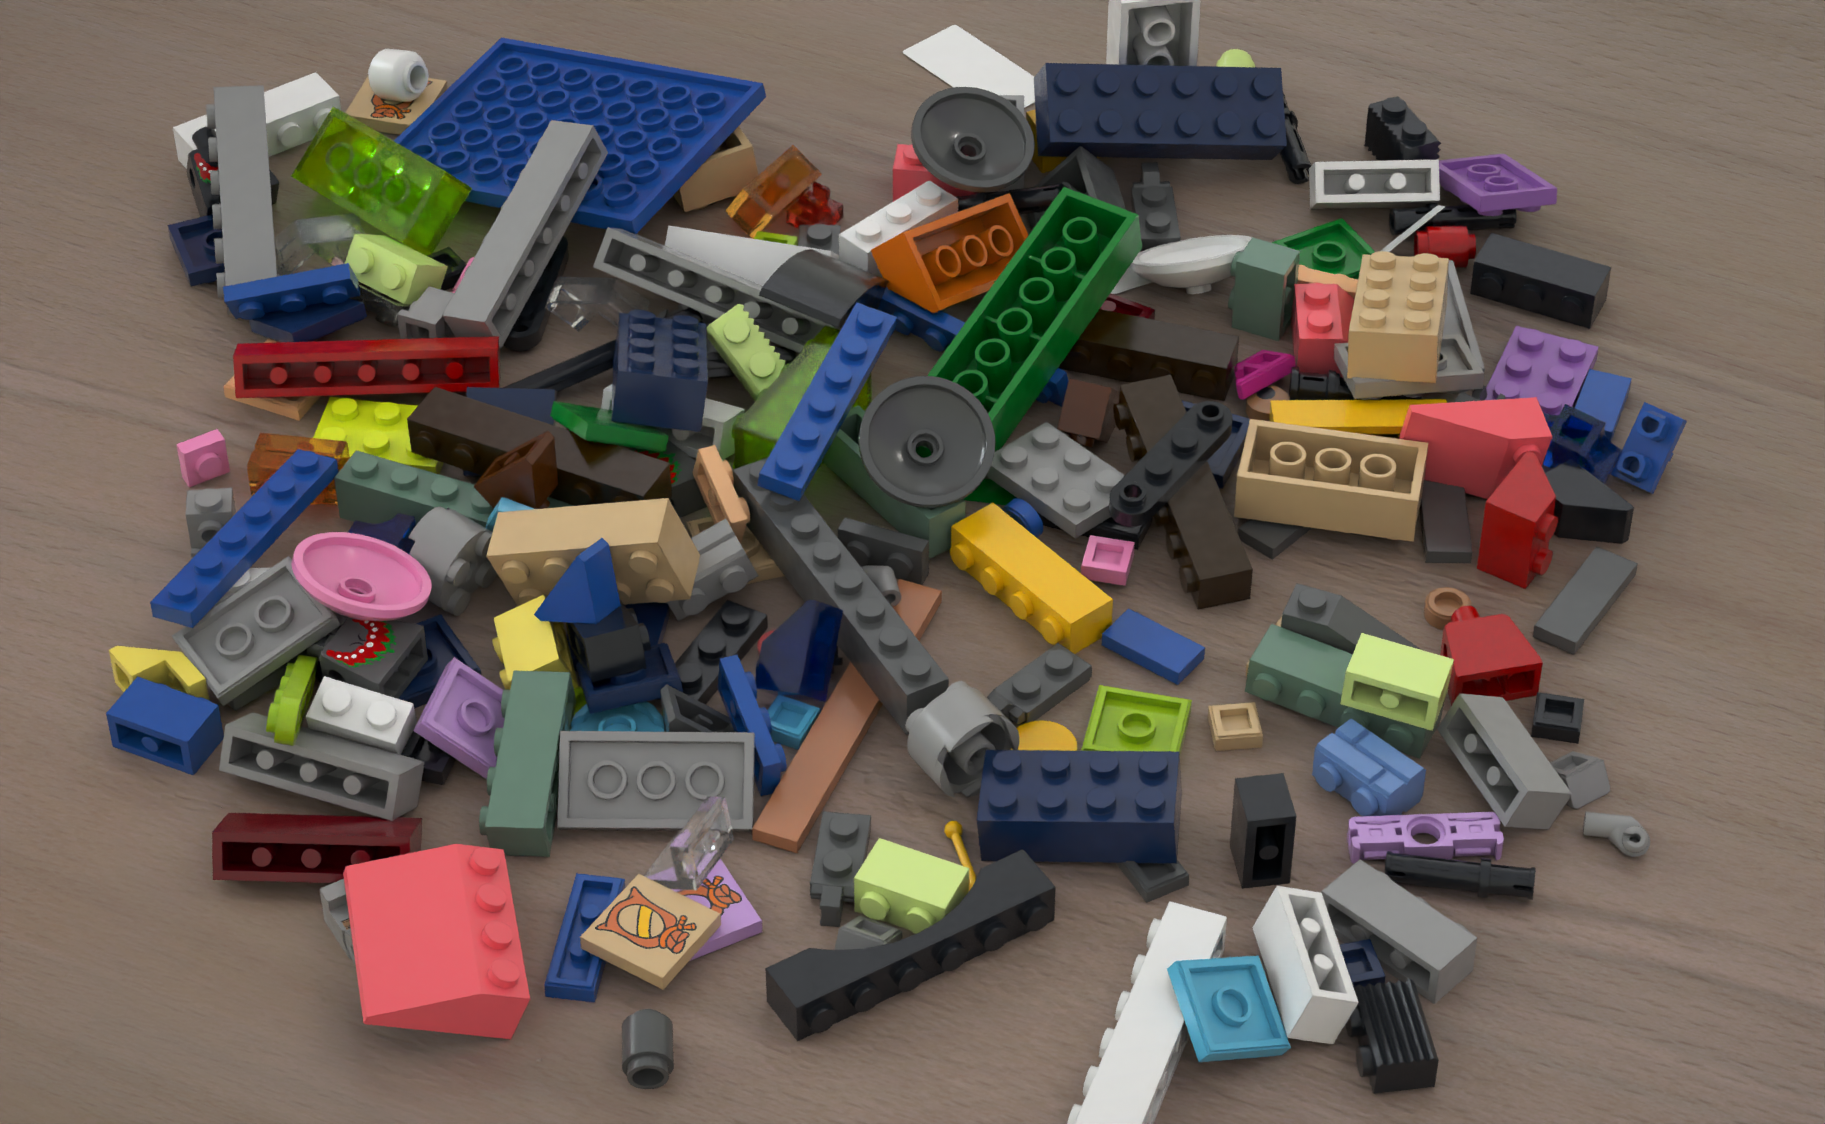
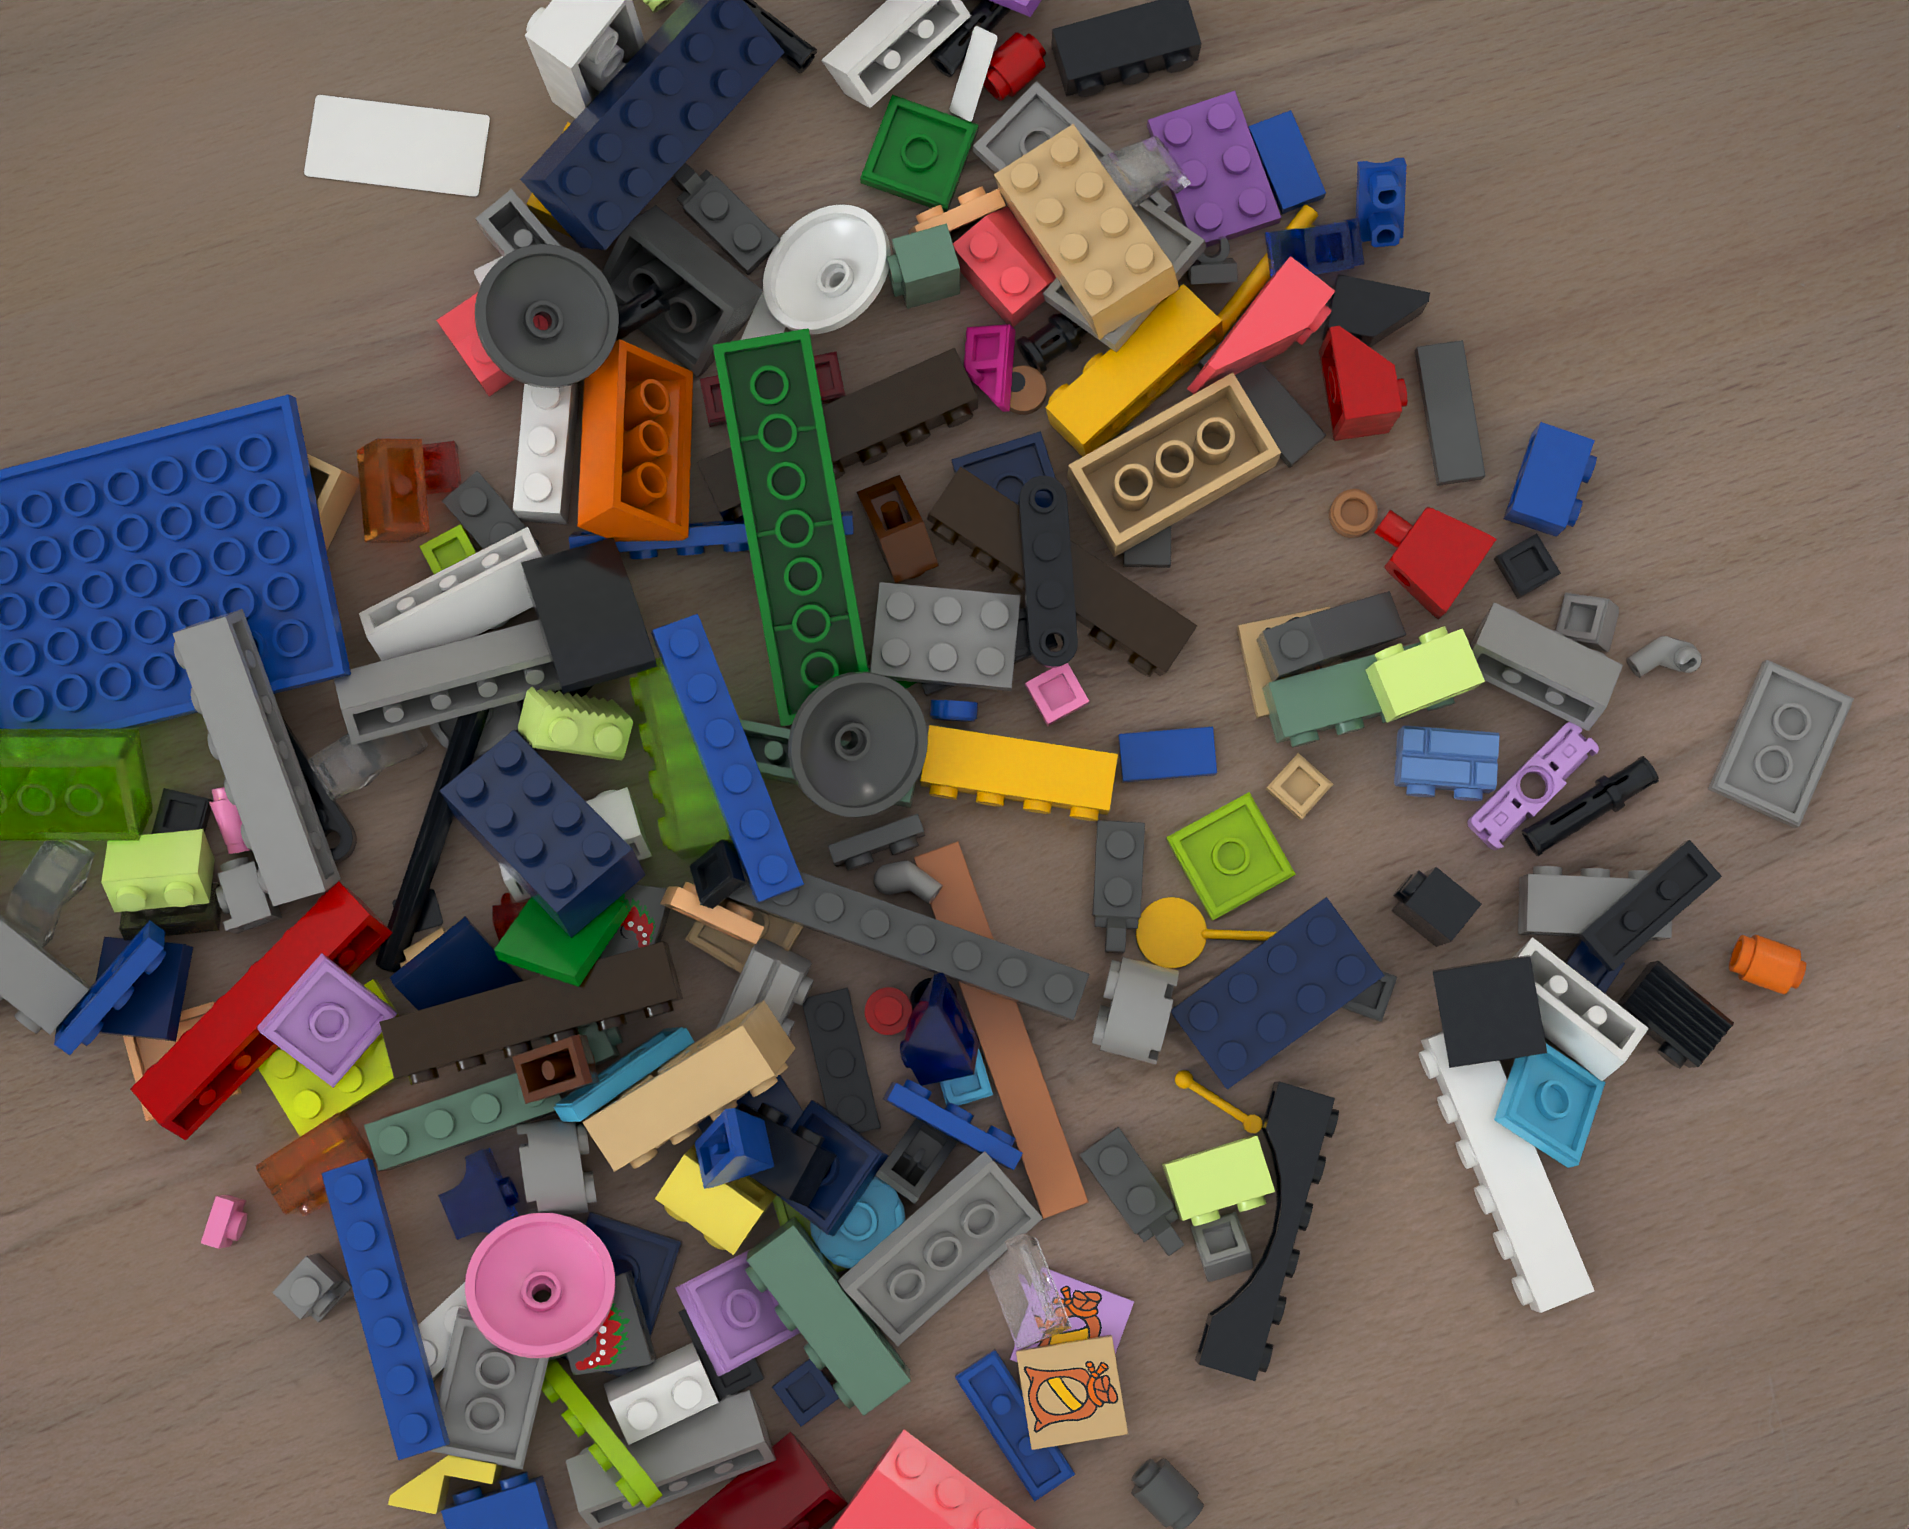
camera: 40 degrees left, 40 degrees up
(396, 380) = (326, 1020): none -> lavender tile
(460, 805) = (806, 1392): none -> dark blue plate
(747, 454) = (717, 874): none -> black tile
(1235, 898) = (1489, 1011): none -> black tile
(1438, 925) = (1649, 905): none -> black plate
(1477, 312) = (1144, 170): none -> clear slope
(1509, 1058) = (1767, 963): none -> orange brick
(1625, 671) = (1550, 480): none -> blue brick
(1666, 946) = (1780, 744): none -> light grey tile

